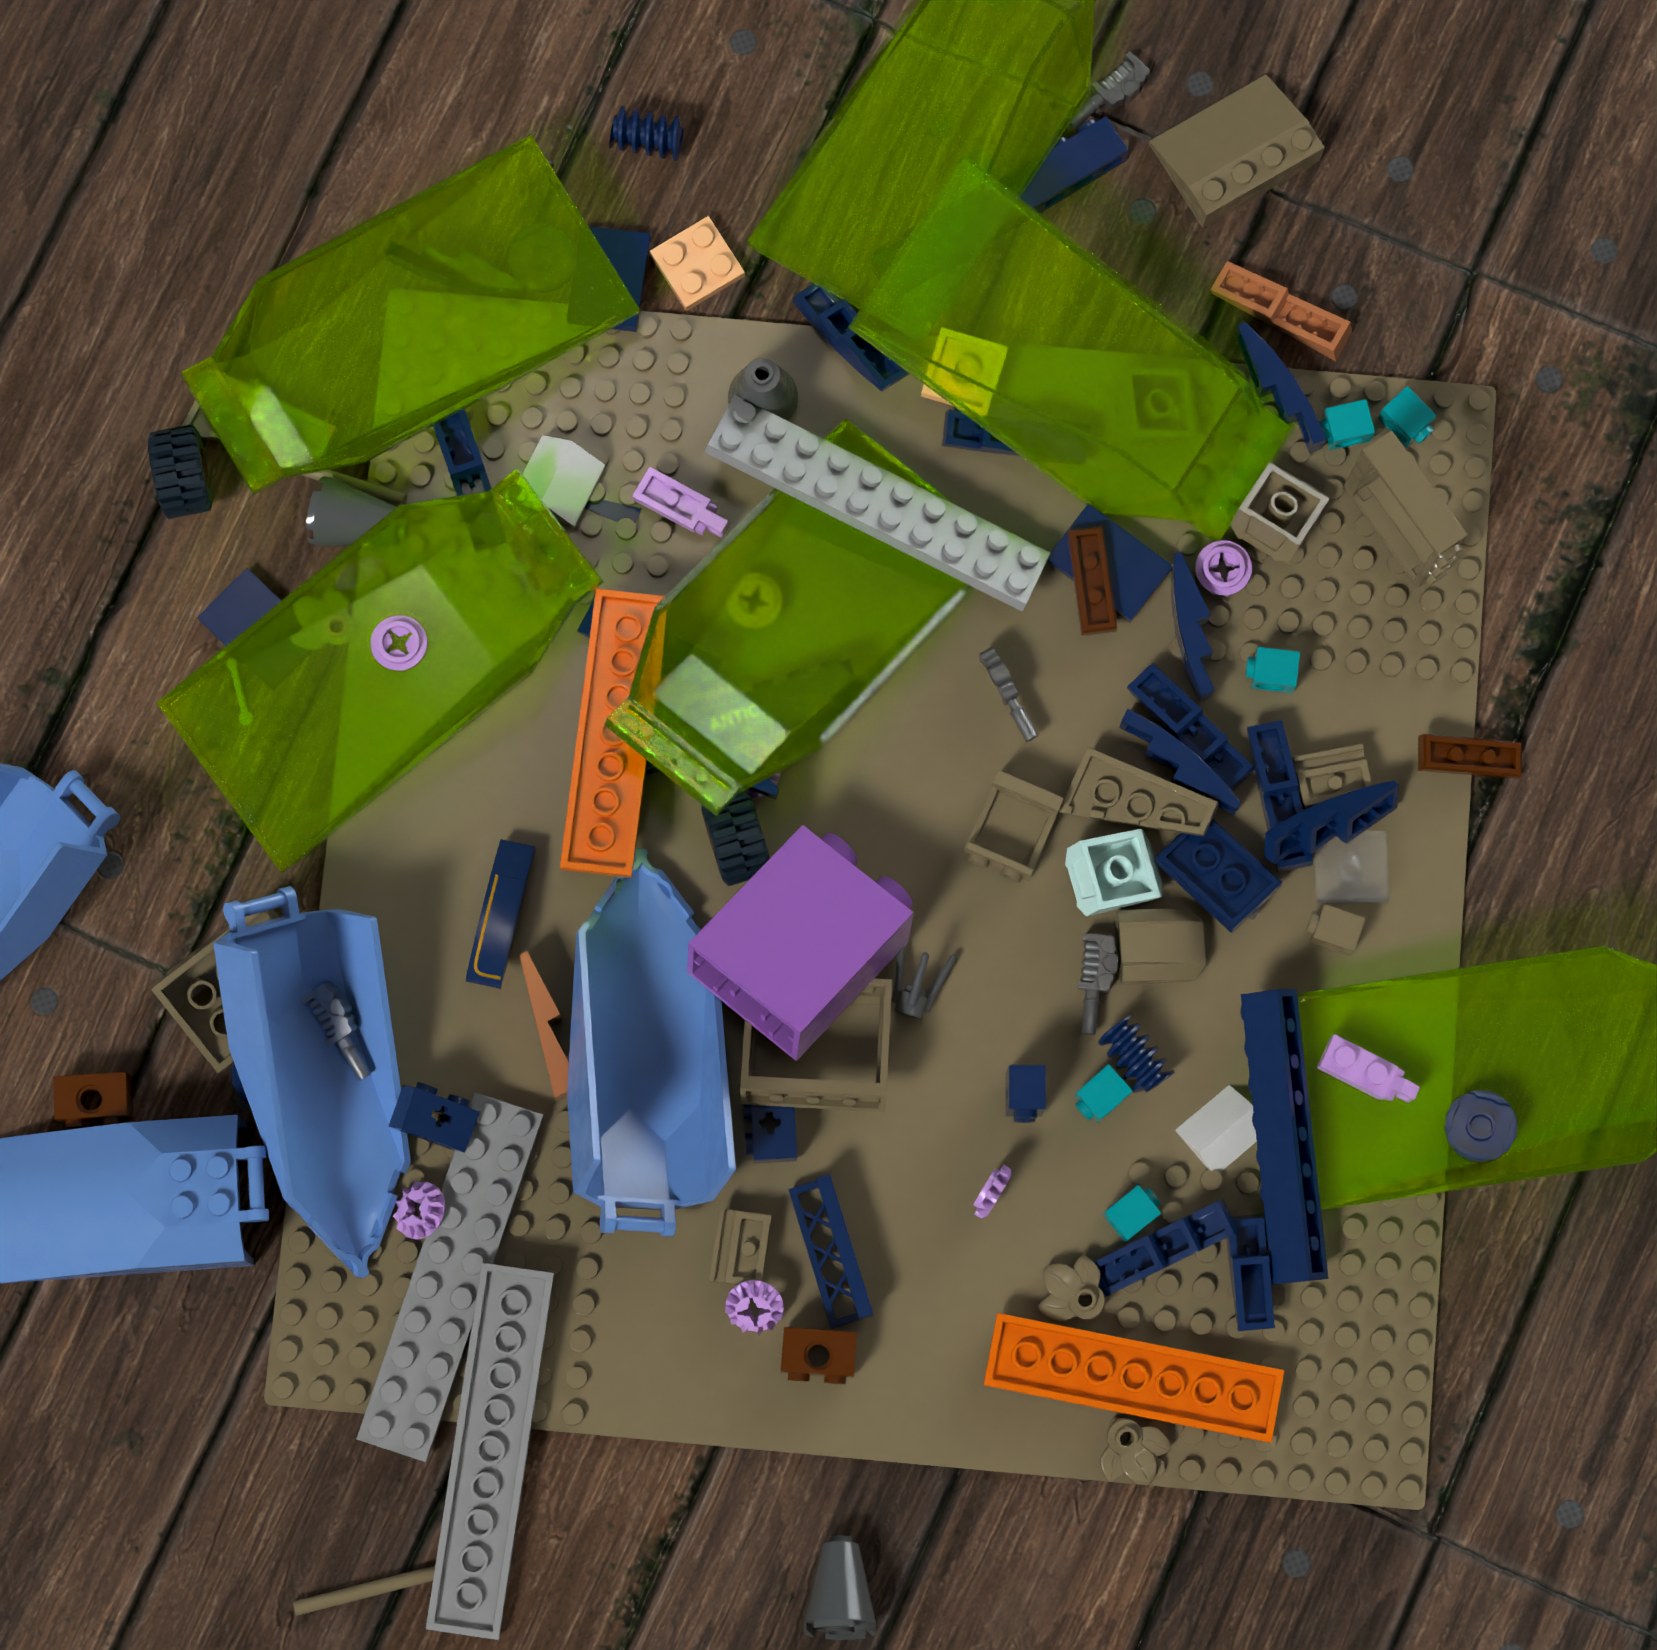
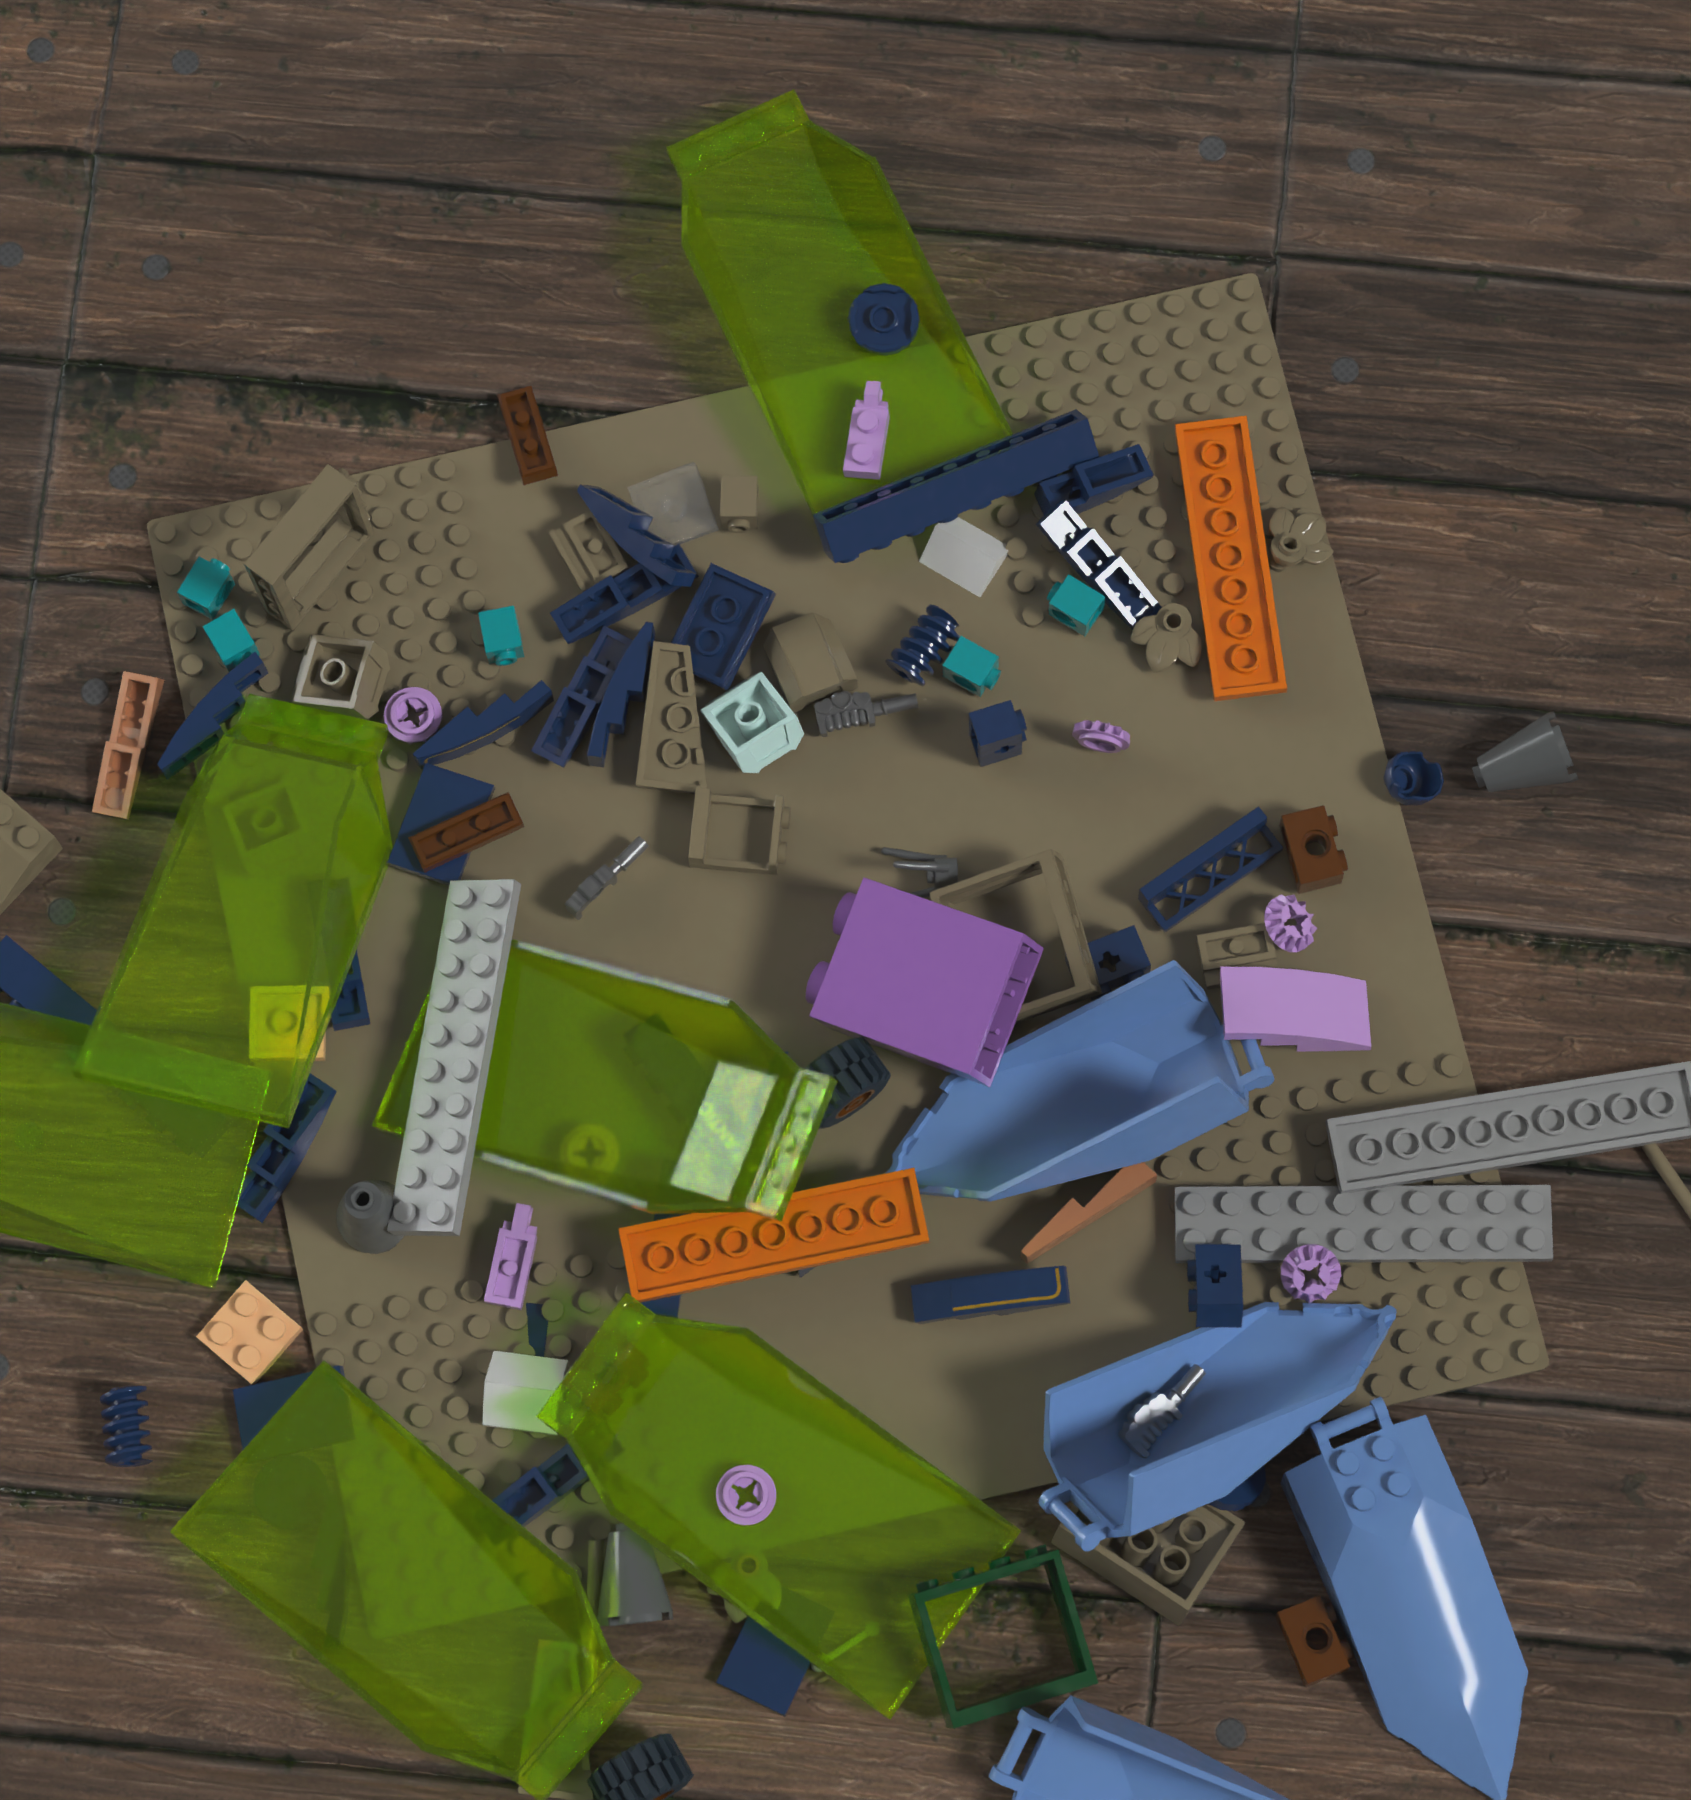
camera: 100 degrees left, 5 degrees down
(135, 820) = (1002, 1567): none -> dark green window
(668, 1280) = (1295, 1008): none -> lavender slope
(858, 1476) = (1413, 778): none -> dark blue hair

